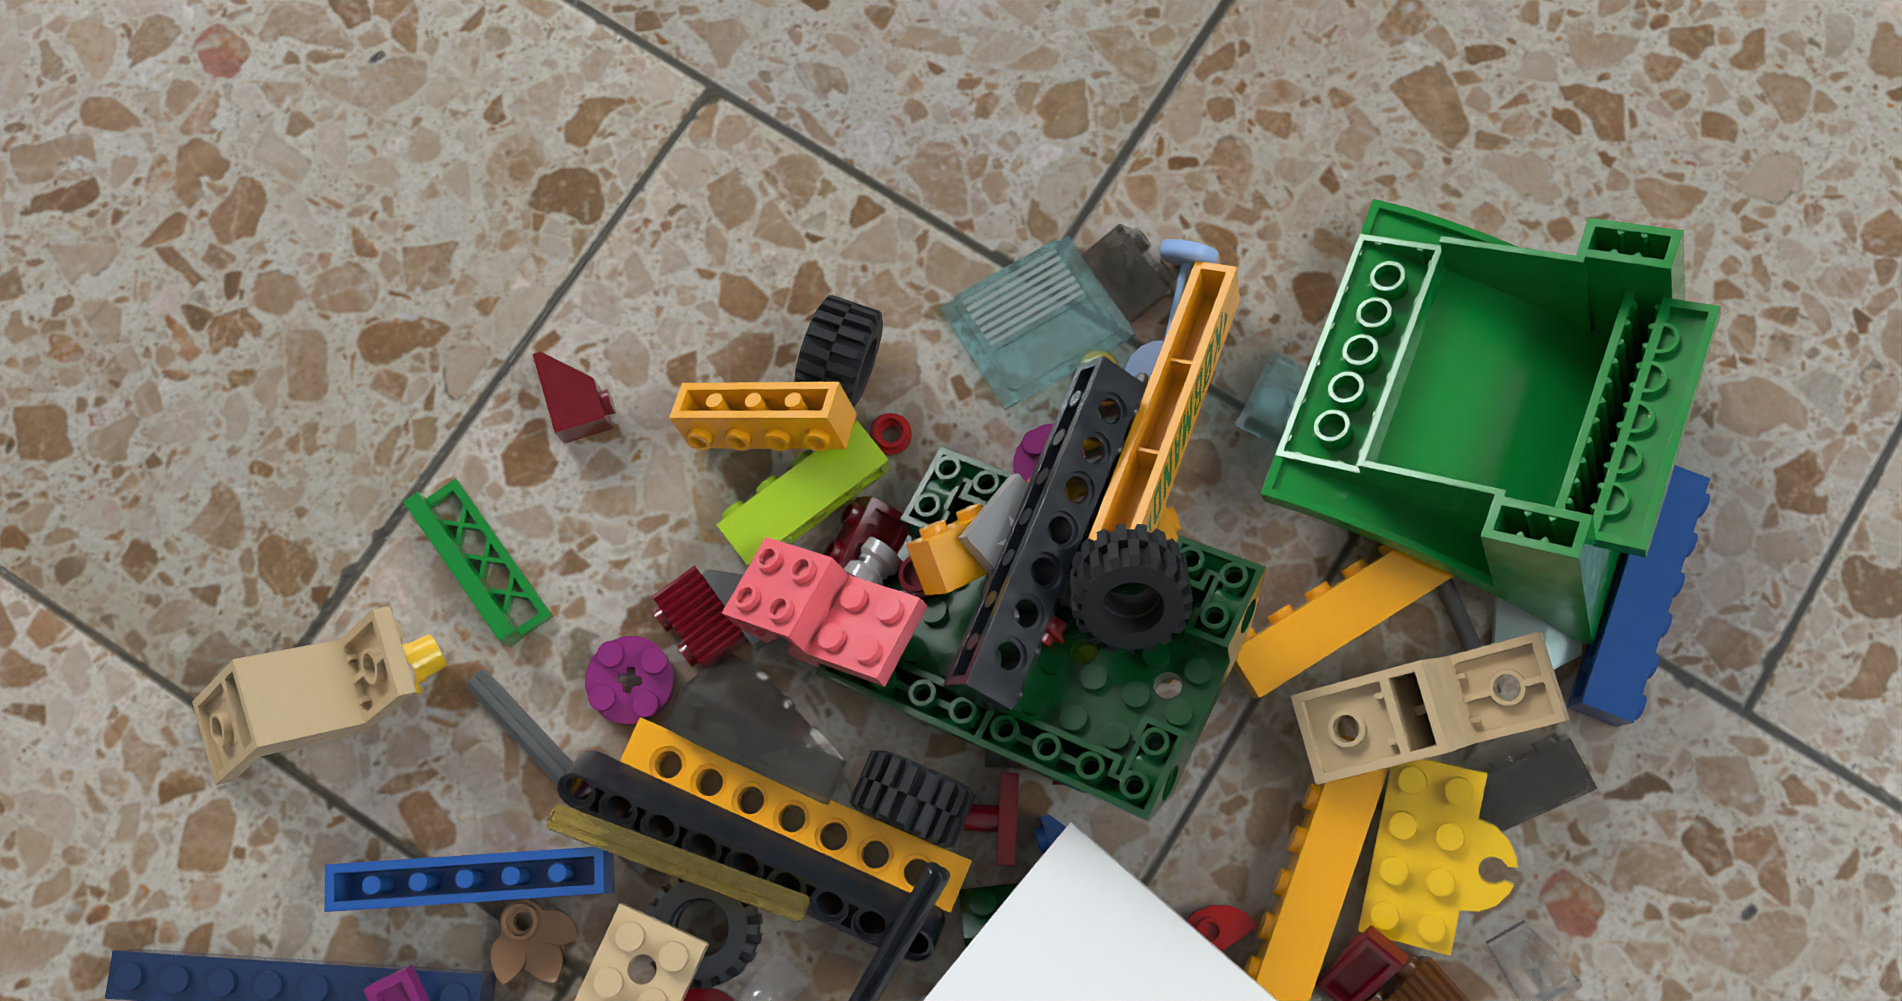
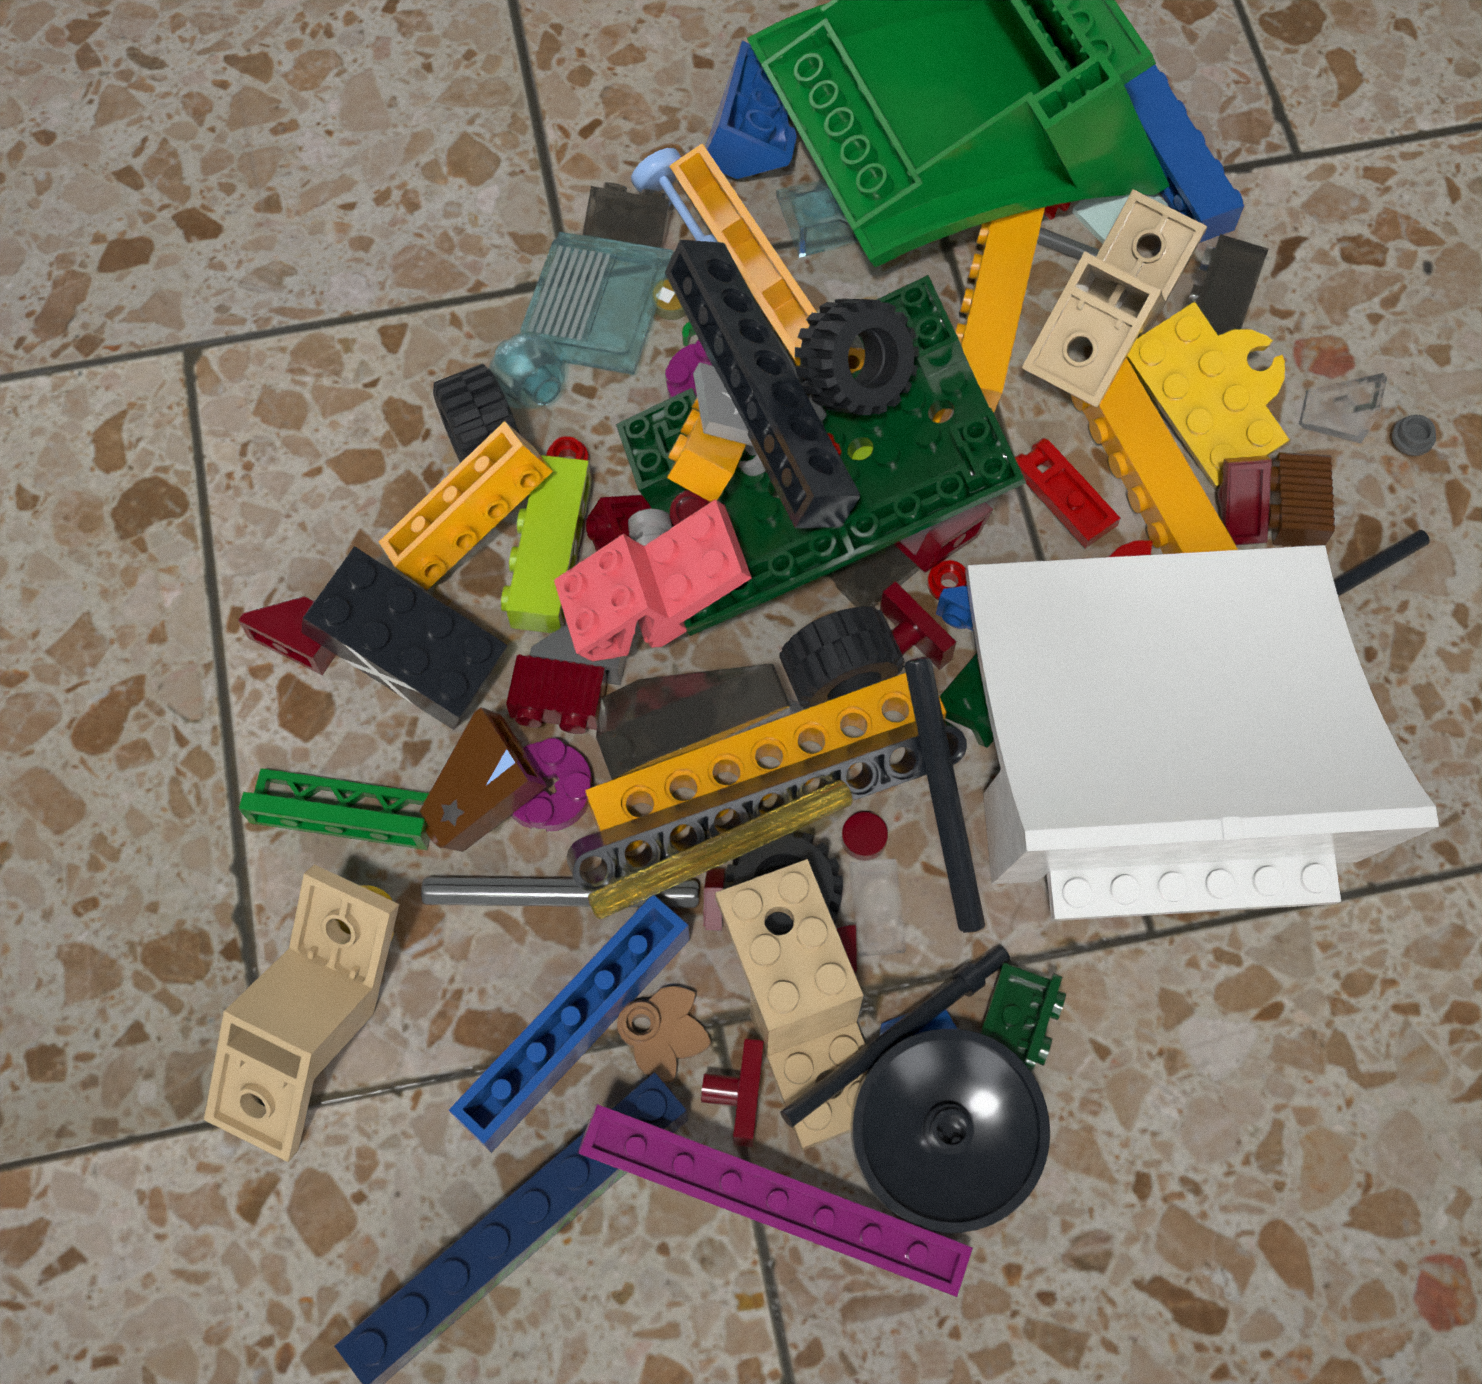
camera: 45 degrees left, 10 degrees down
(578, 640) = (479, 784): none -> reddish brown slope
(625, 479) = (402, 637): none -> black brick
(644, 891) = (711, 914): none -> tile
(808, 940) = (864, 836): none -> dark red tile
(925, 336) = (528, 364): none -> clear light blue plant
(1055, 809) = (945, 570): none -> red plate
(1232, 821) = (1067, 493): none -> red plate
(1299, 280) = (751, 122): none -> blue wedge

